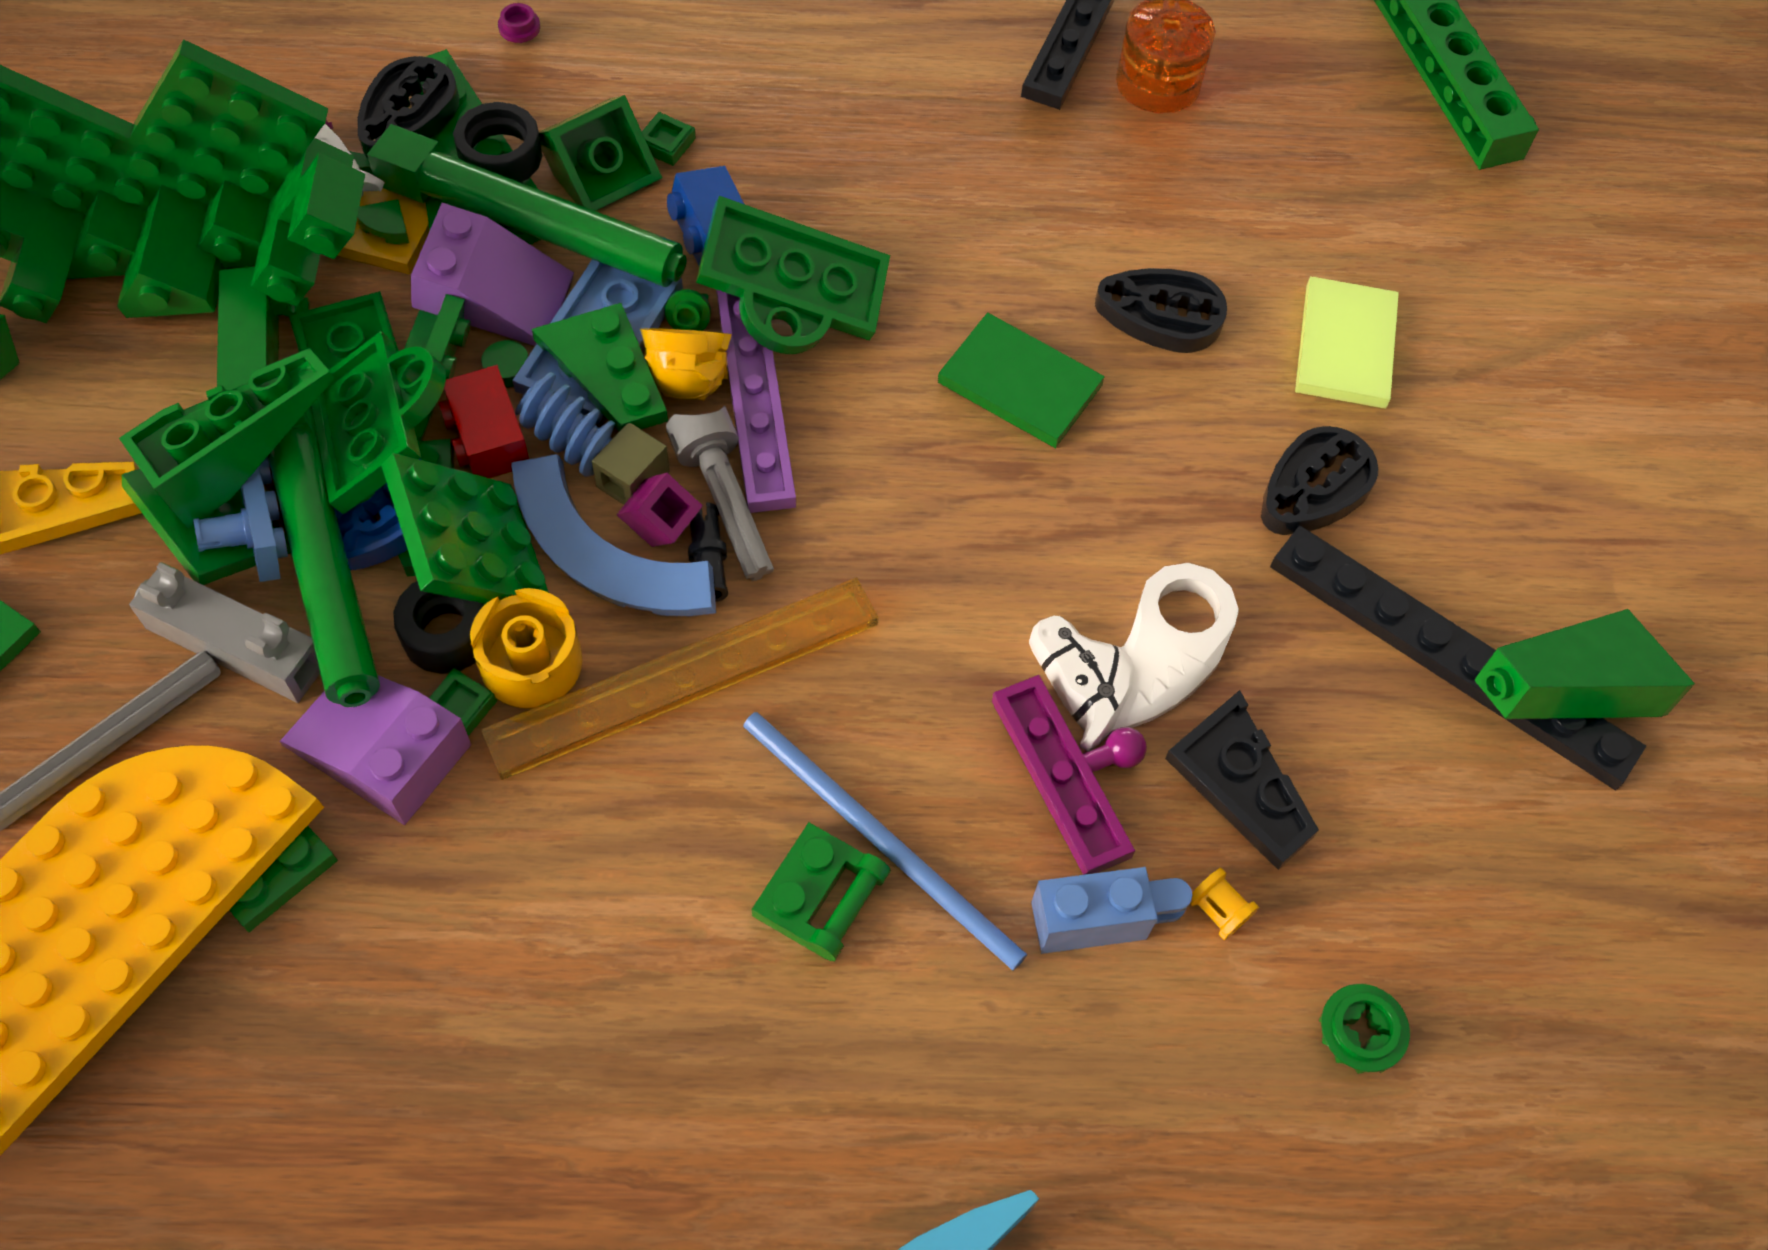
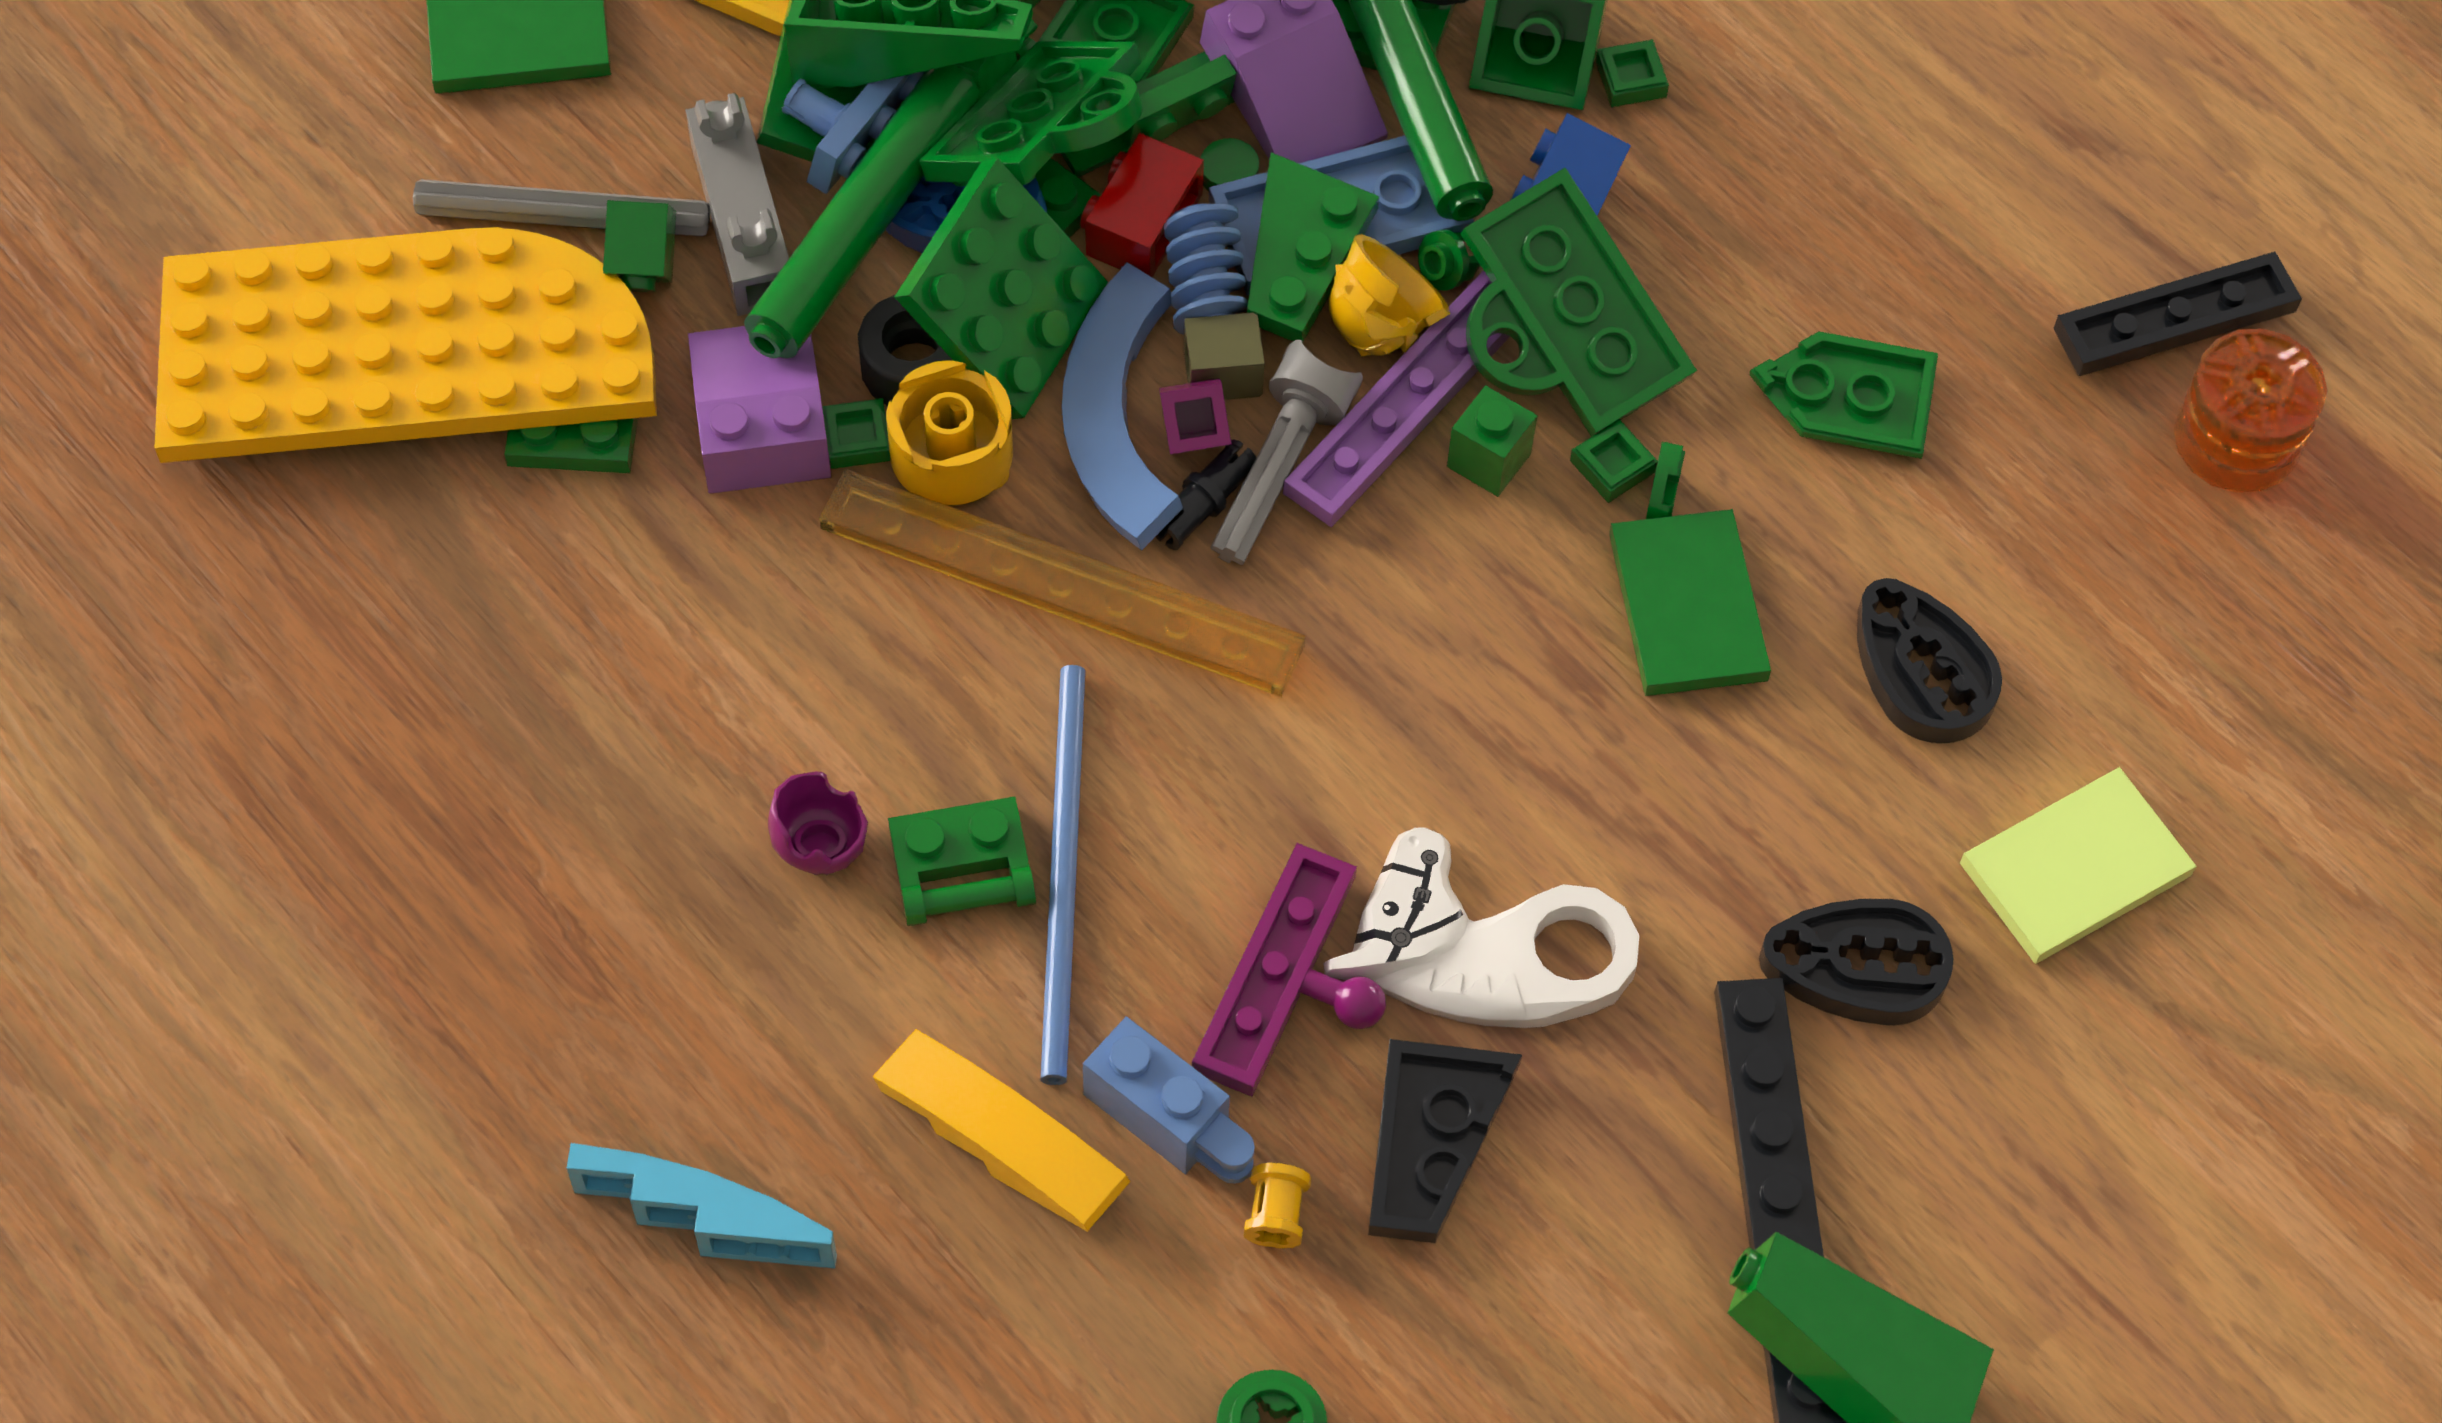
camera: 50 degrees right, 0 degrees up
(189, 712) = (639, 243): none -> green brick
(719, 956) = (816, 824): none -> magenta hair
(831, 382) = (1491, 440): none -> green brick
(896, 342) = (1613, 461): none -> green tile
(936, 329) = (1665, 481): none -> green tile
(970, 205) = (1853, 392): none -> green tile
(1035, 1022) = (1002, 1129): none -> yellow slope

